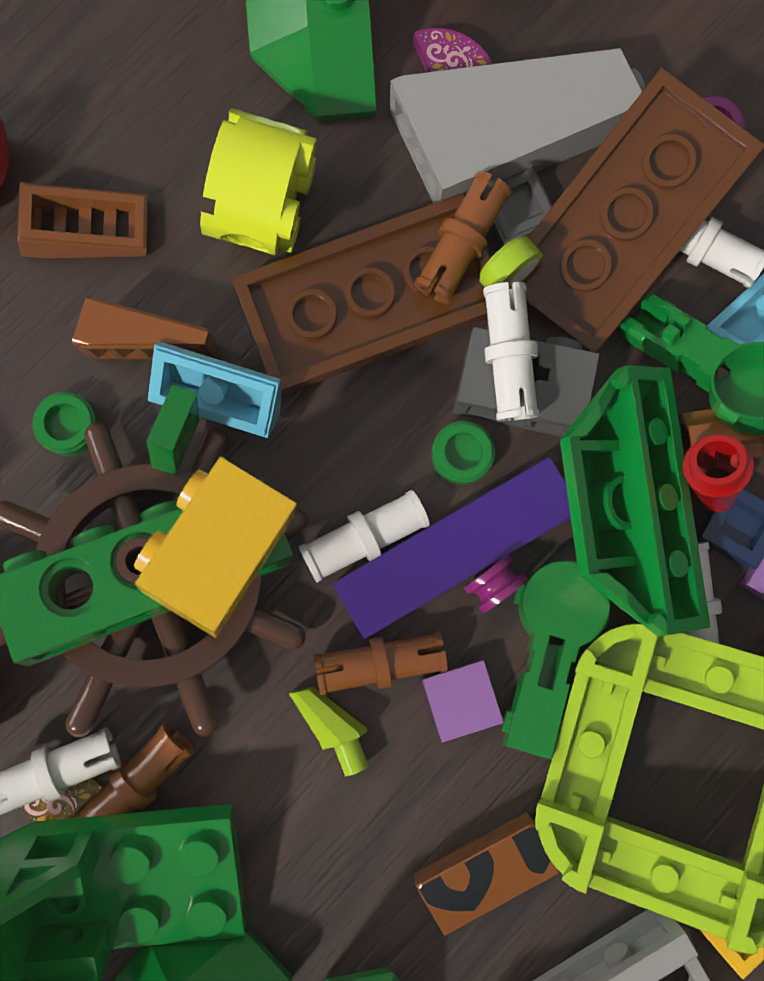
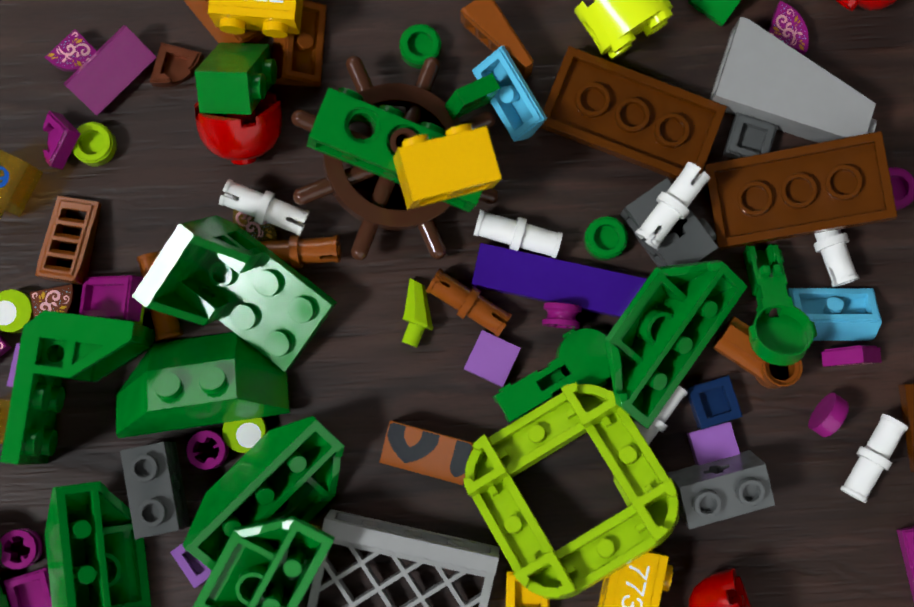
camera: 45 degrees right, 0 degrees up
(463, 237) = (703, 128): dark orange pin -> none
(511, 263) = (715, 163): lime tile -> none
(718, 471) = (721, 357): red cone -> none

